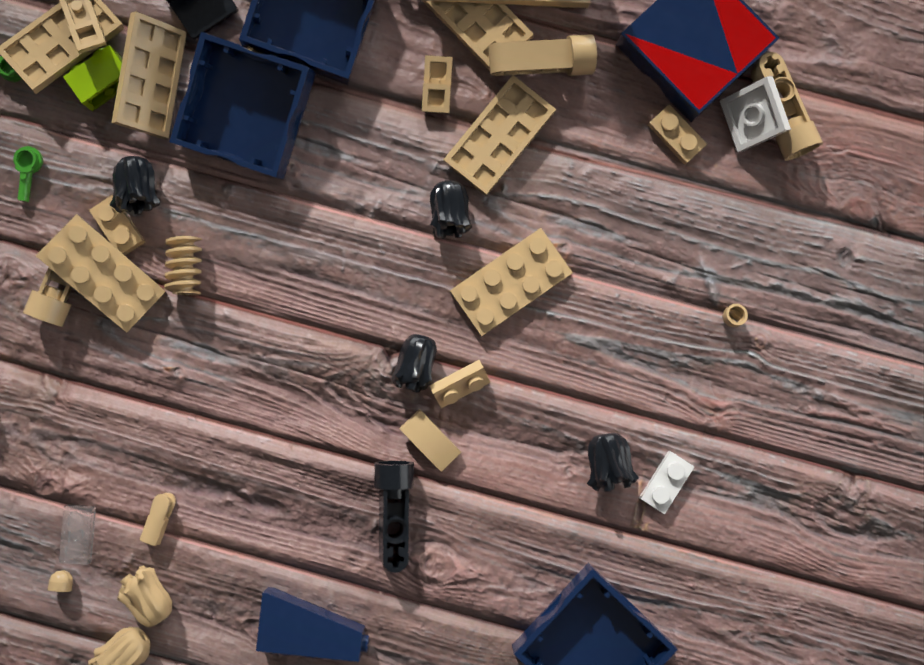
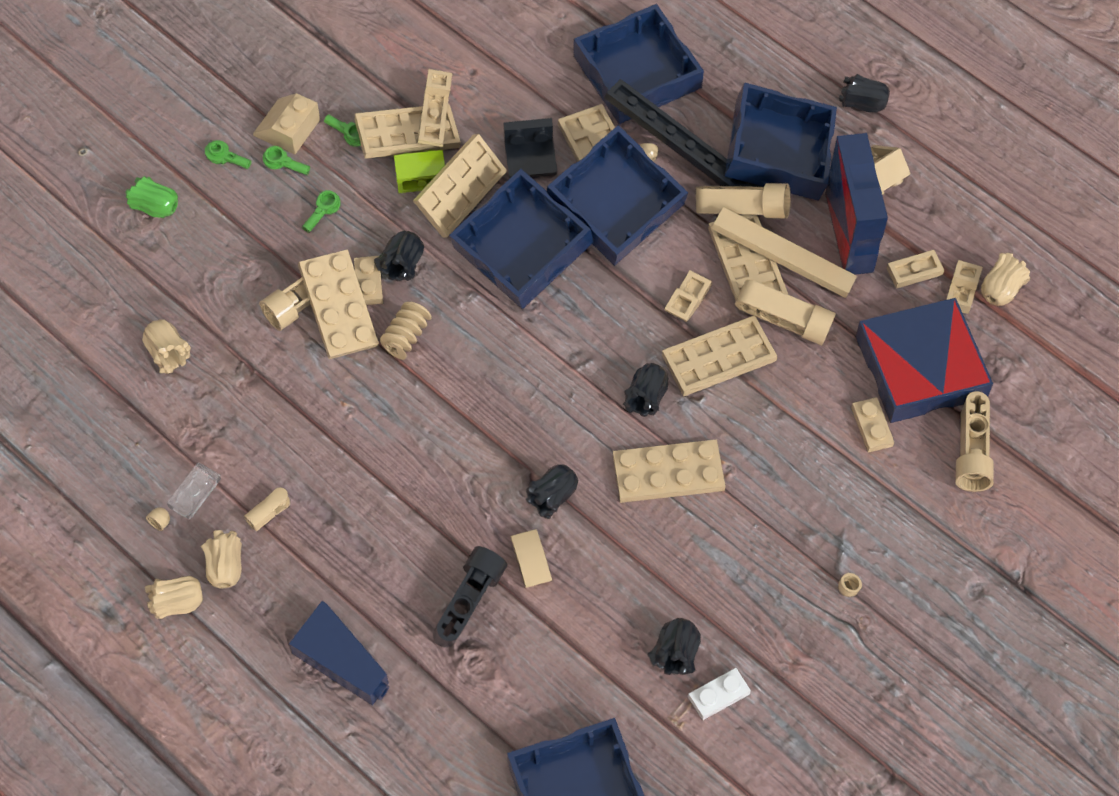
camera: 25 degrees right, 25 degrees down
(460, 384) = (581, 525): tan plate -> none
(755, 114) = (944, 433): white plate -> none

